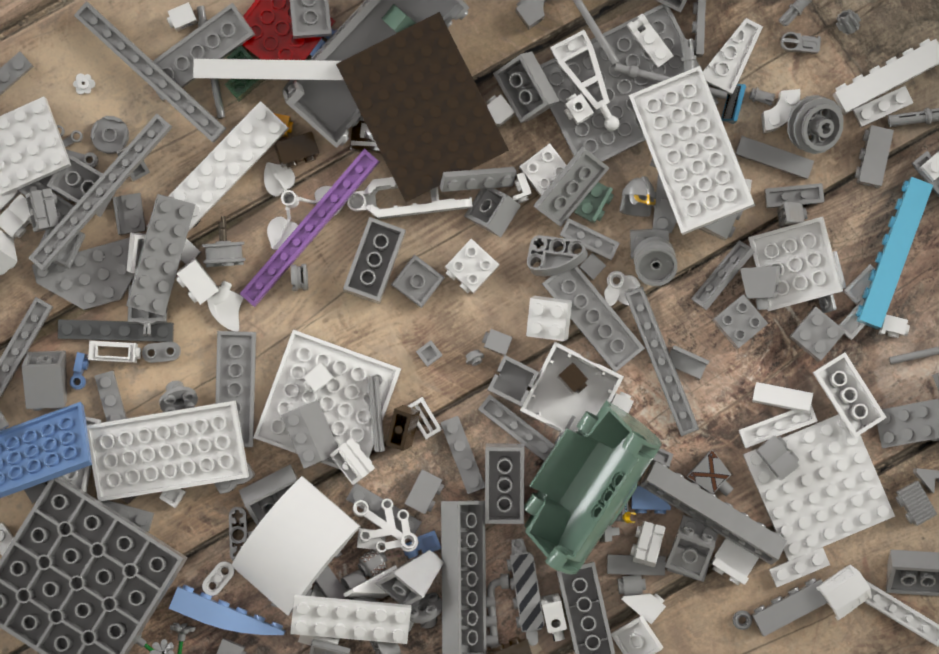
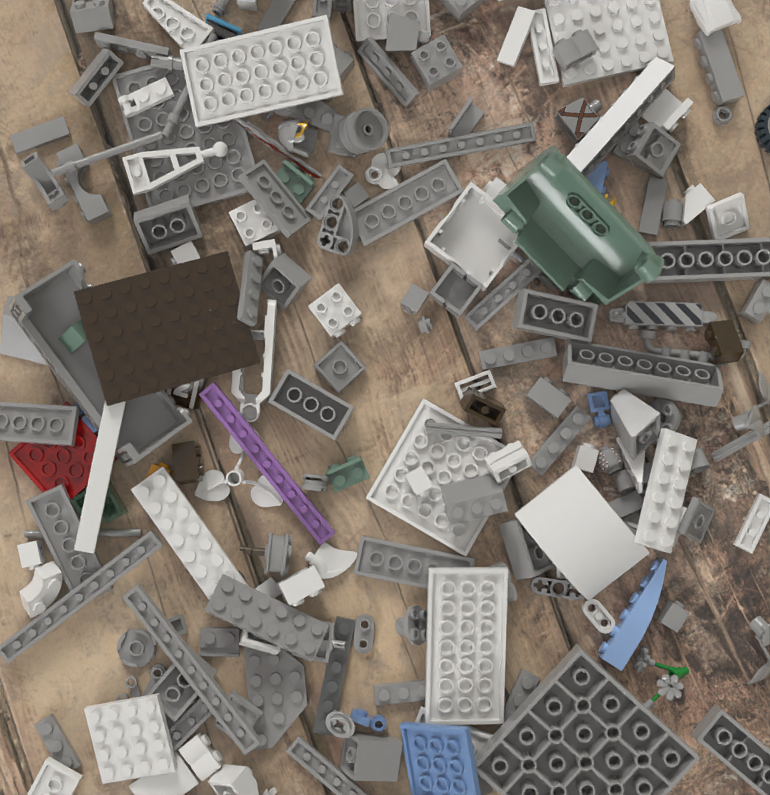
camera: 85 degrees left, 0 degrees up
(43, 209) = (198, 730): light grey brick -> none
(66, 342) = (337, 728): none -> light grey gear
(89, 84) = (80, 659): white plant -> none
(133, 352) = (361, 662): white window -> none
(150, 34) = (42, 589): none -> white brick
(172, 497) = (512, 647): white plate -> none
(313, 307) = (347, 474): none -> sand green bracket
(387, 527) = (579, 438): white plant -> none
(429, 353) = (413, 368): light grey plate -> none
(549, 318) = (400, 244): white brick -> none
(552, 610) = (690, 292): white torso -> none
(573, 378) = (464, 230): dark brown brick -> none
(578, 109) = (199, 178): white brick -> none
(623, 181) = (277, 147): none -> light grey sword
(648, 544) = (636, 189): white brick -> none
(799, 567) = (681, 53): white plate -> none

